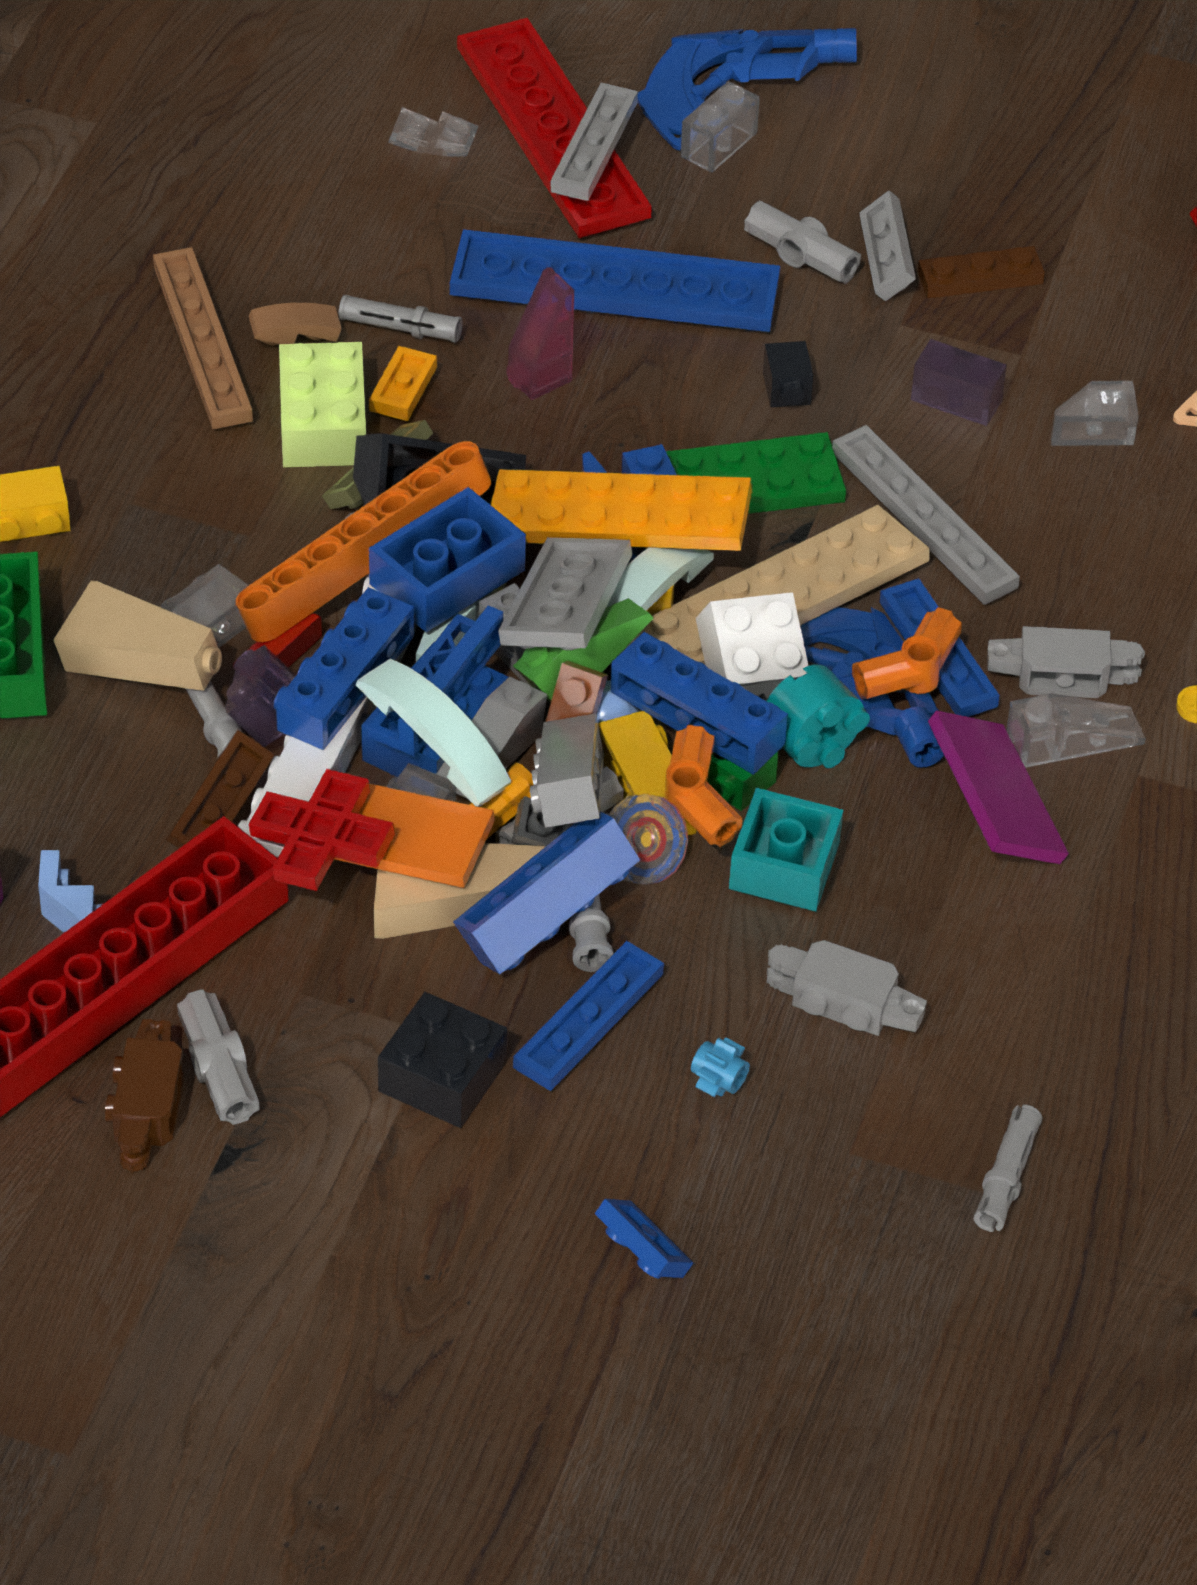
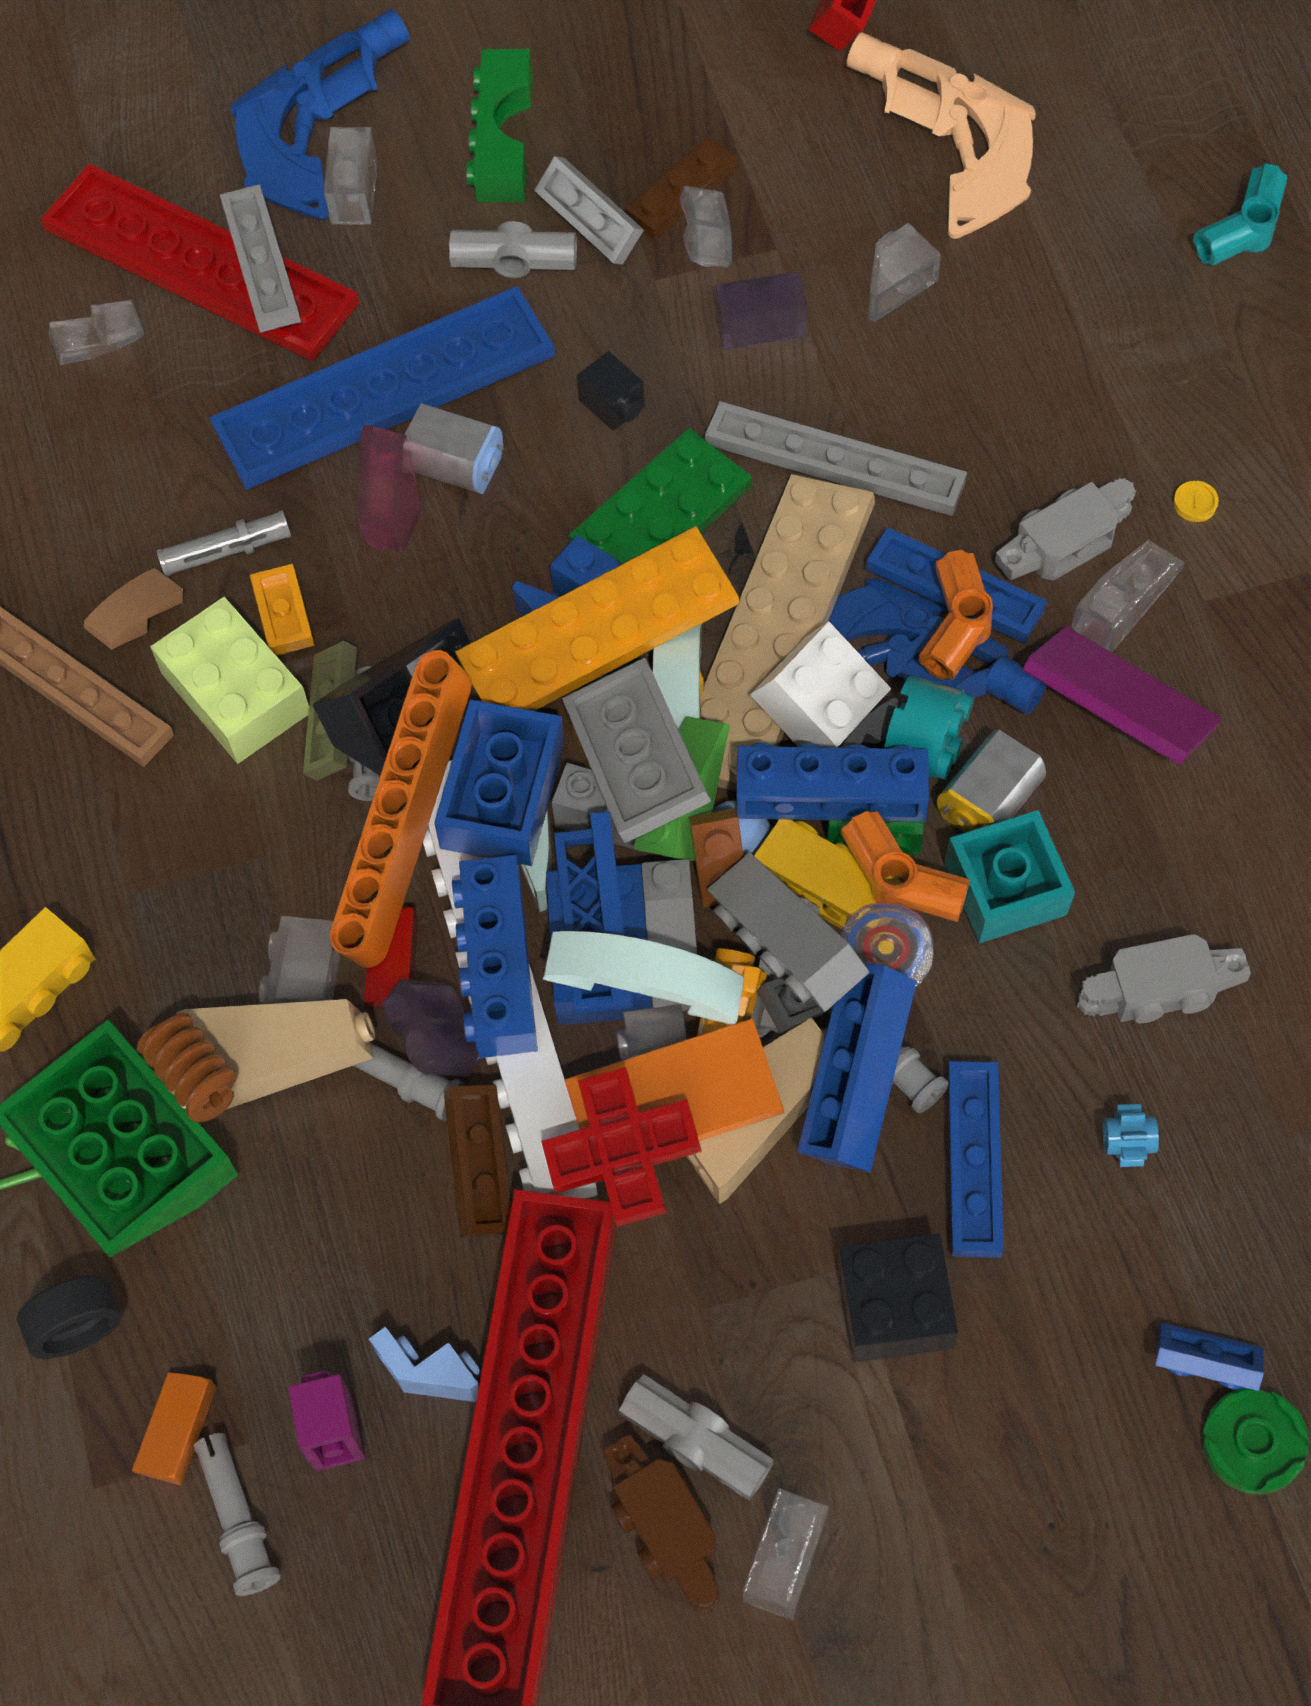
camera: 30 degrees left, 15 degrees up
(65, 608) = (189, 1067): none -> dark orange piece
(212, 1160) = (785, 1554): none -> clear brick
(626, 345) = (454, 448): none -> flat silver piece
(630, 1318) = (1255, 1441): none -> green tile
(839, 780) = (991, 784): none -> flat silver piece
(897, 128) = (499, 161): none -> green arch
(970, 305) = (708, 227): none -> clear slope

